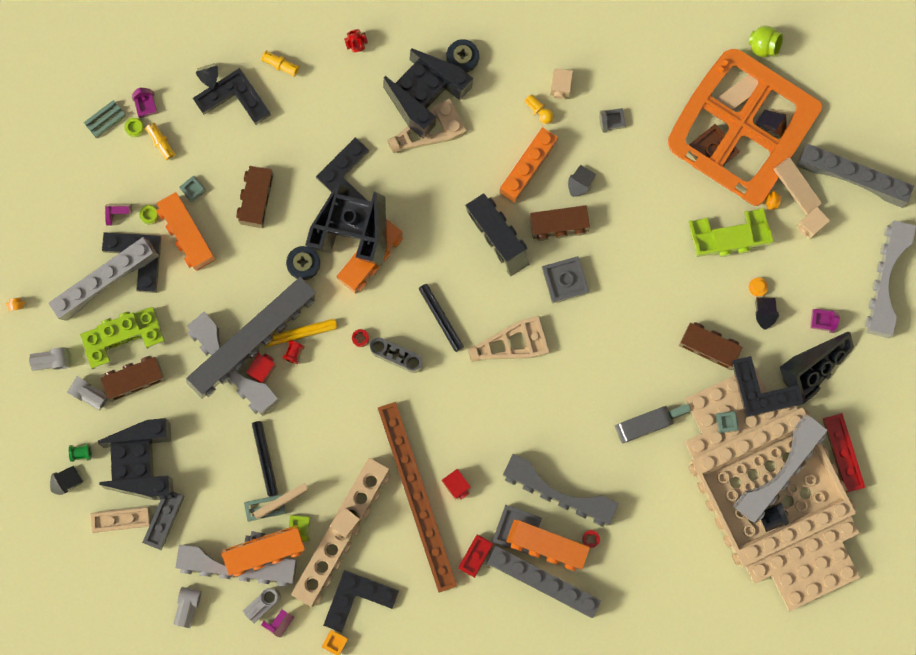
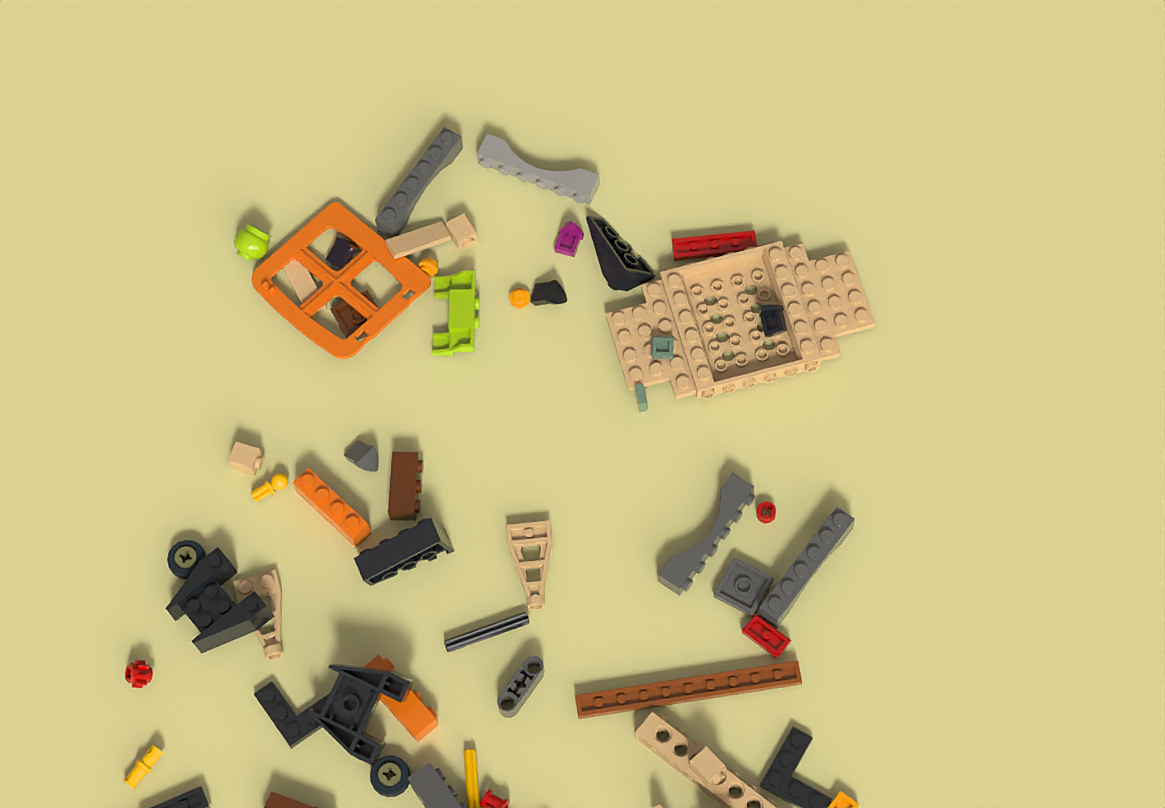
camera: 75 degrees left, 15 degrees down
(365, 335) = (495, 731): red bush -> none
(456, 485) = (682, 643): red brick -> none
(547, 544) = (766, 553): orange brick -> none
(565, 279) = (471, 491): dark grey plate -> none
(612, 119) = (299, 414): dark grey tile -> none
(644, 424) = (649, 436): dark grey beam -> none
(710, 345) = (574, 354): reddish brown brick -> none
(753, 400) = (643, 317): black plate -> none
(805, 437) = (695, 272): light grey arch -> none

